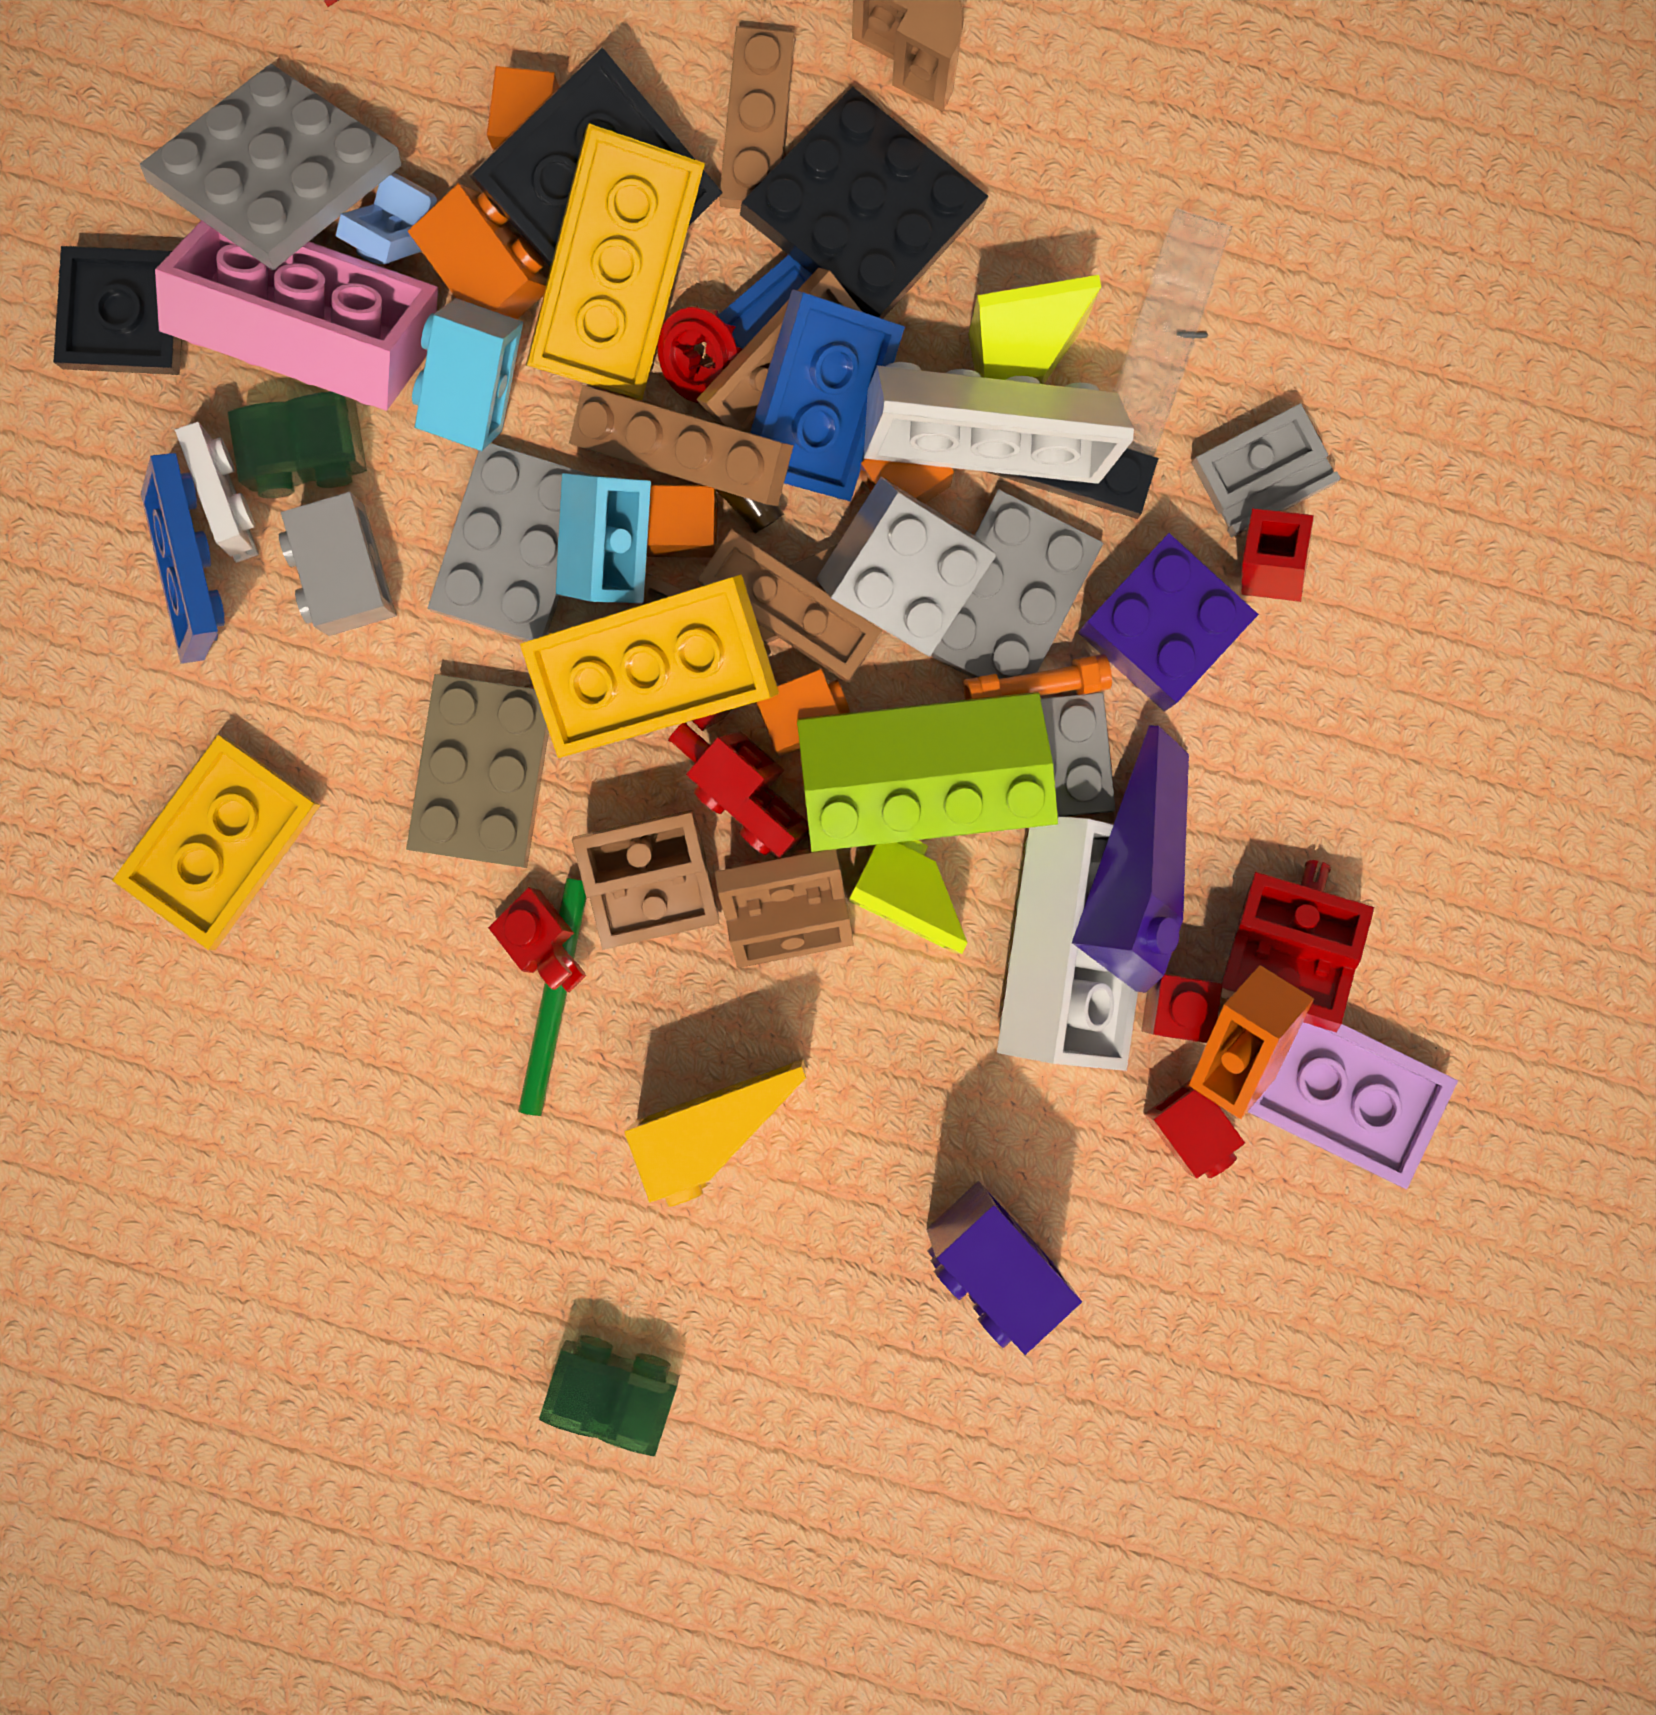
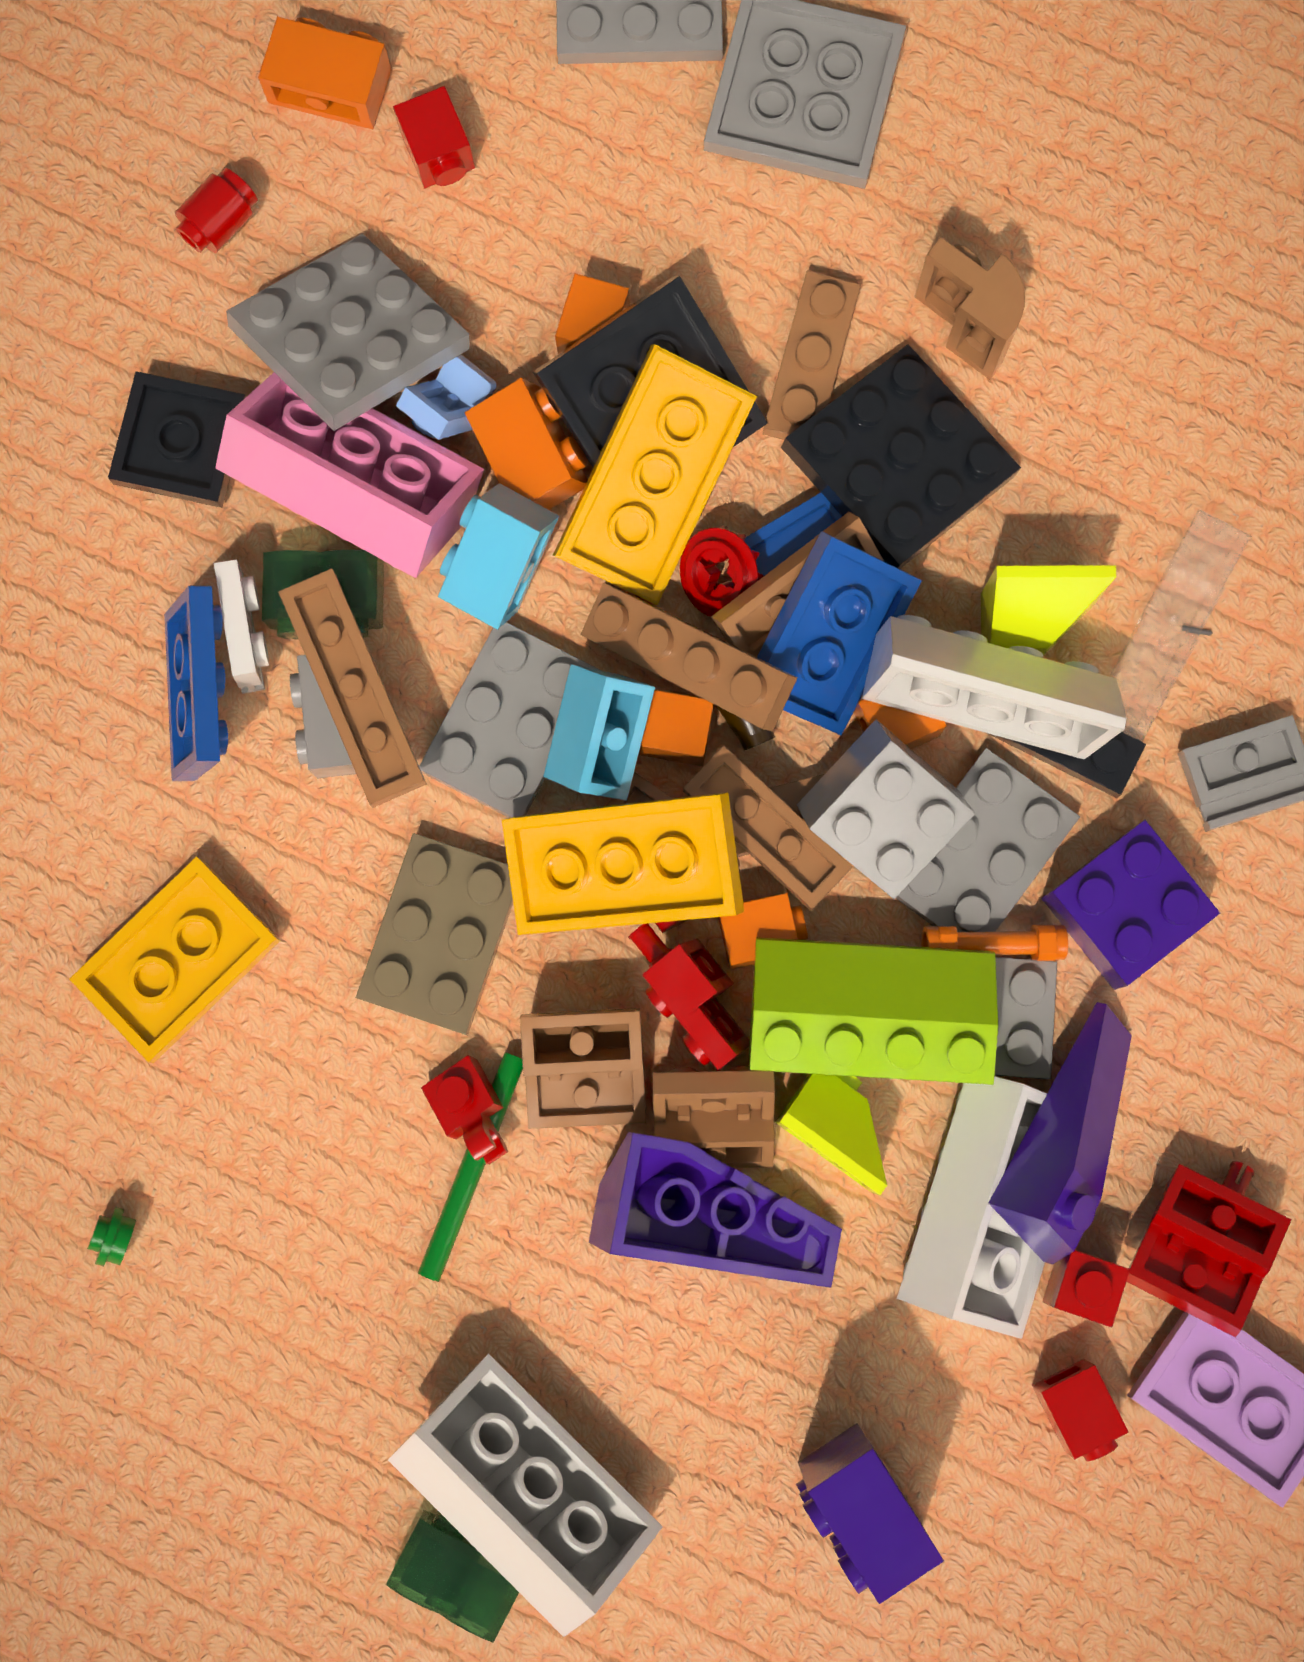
camera: 15 degrees right, 5 degrees down
(113, 64) = (215, 211): none -> red brick
(204, 1129) = (111, 1237): none -> green plate
(341, 534) = (352, 688): none -> medium nougat plate
(661, 1309) = (526, 1496): none -> white brick
(694, 1140) = (593, 1329): yellow slope -> none
(780, 1001) = (692, 1210): none -> dark purple wedge
(1250, 1041) = (1148, 1332): orange brick -> none
(1276, 554) = (1247, 857): red brick -> none

